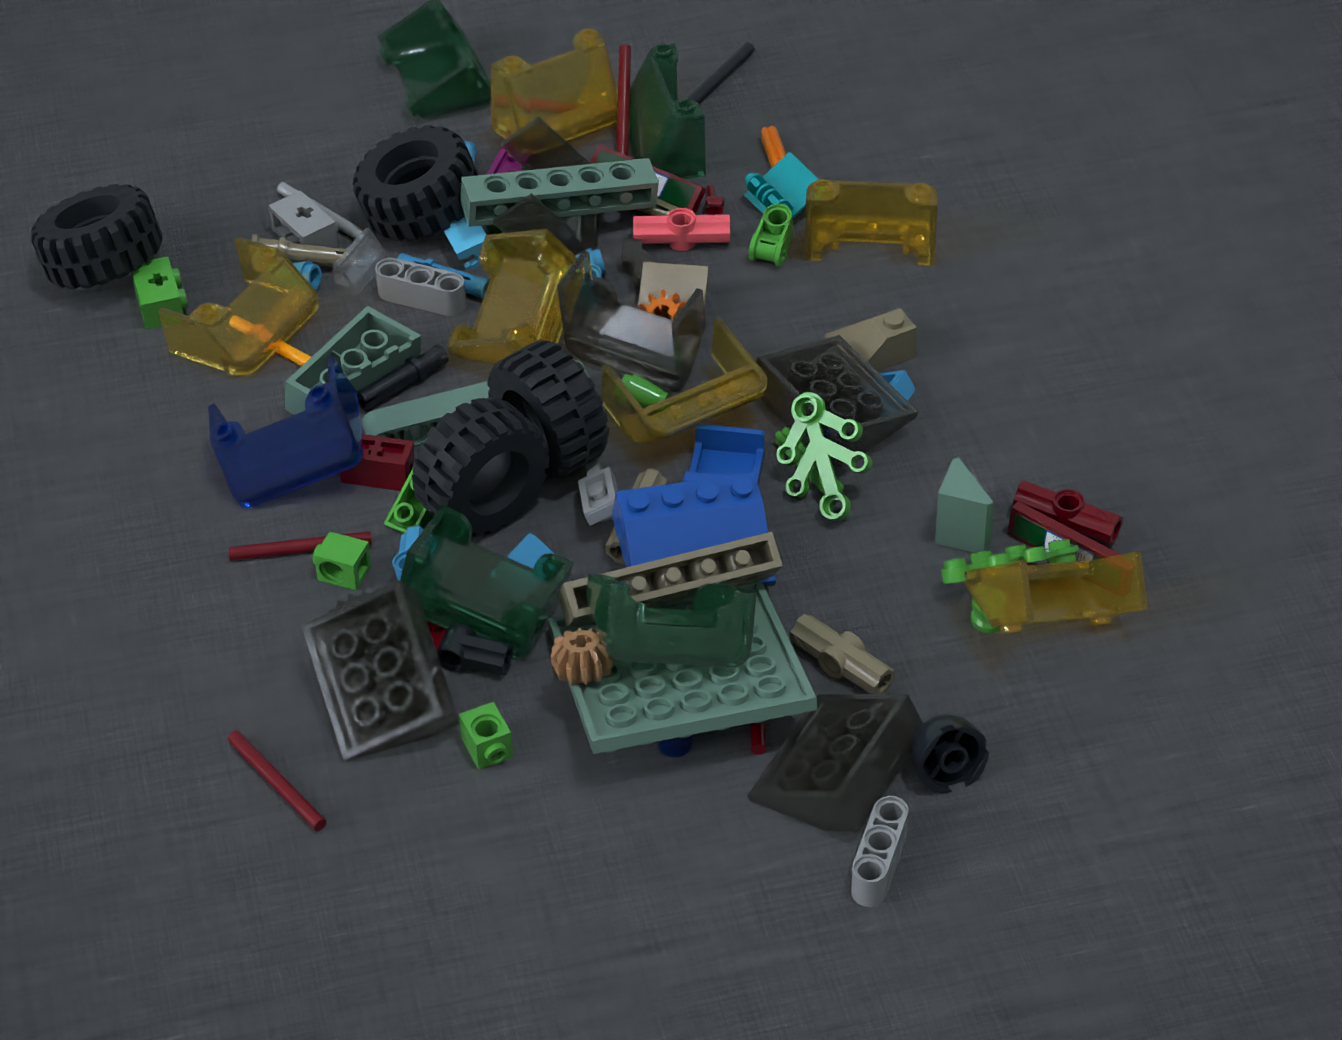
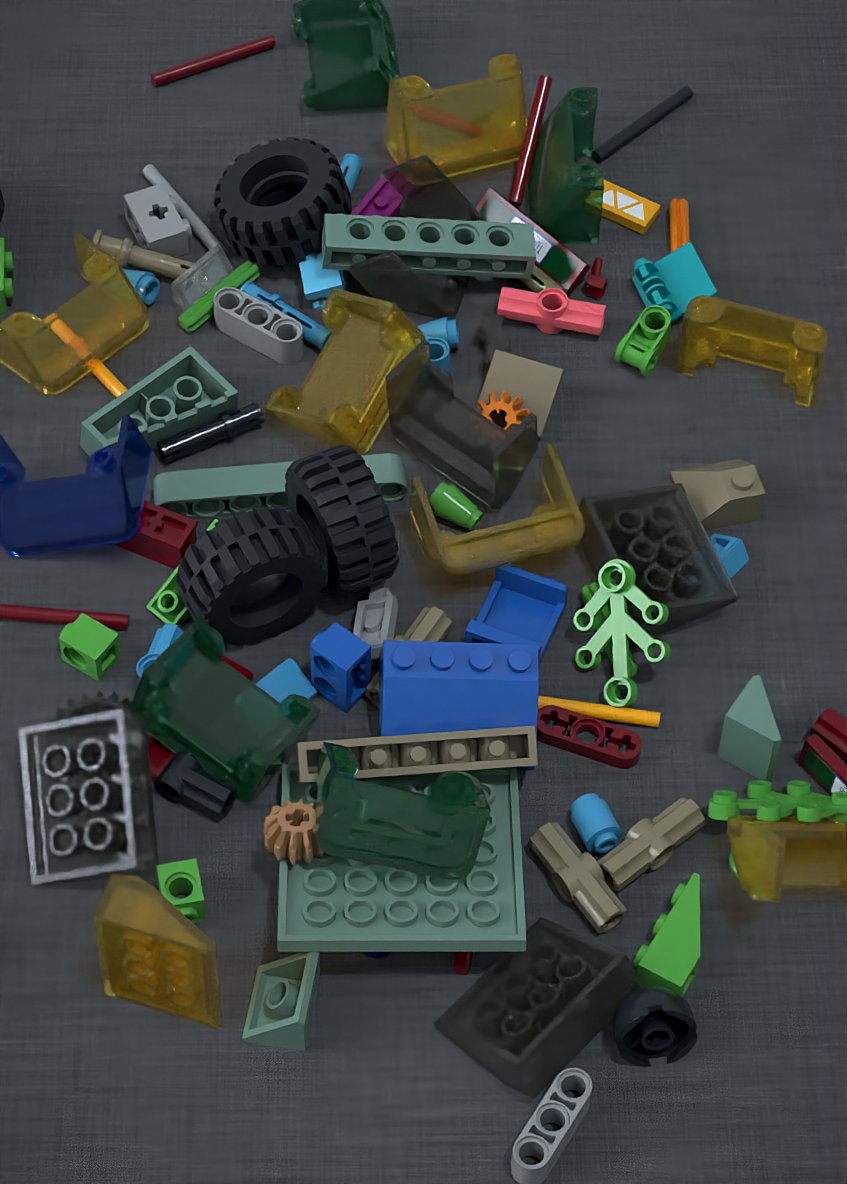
camera: 10 degrees right, 10 degrees up
(315, 95) = (212, 60): none -> dark red bar
(367, 281) = (204, 307): none -> bright green axle
(488, 772) = (156, 953): none -> clear yellow slope
(579, 528) = (340, 666): none -> blue brick
(606, 802) = (283, 1002): none -> sand green slope
(727, 143) = (628, 208): none -> light orange tile
(823, 527) = (605, 712): none -> light orange bar
(826, 558) = (595, 751): none -> dark red beam
(844, 610) = (595, 823): none -> dark azure brick
(900, 615) = (651, 843): none -> dark tan piece
(945, 682) = (675, 950): none -> bright green slope

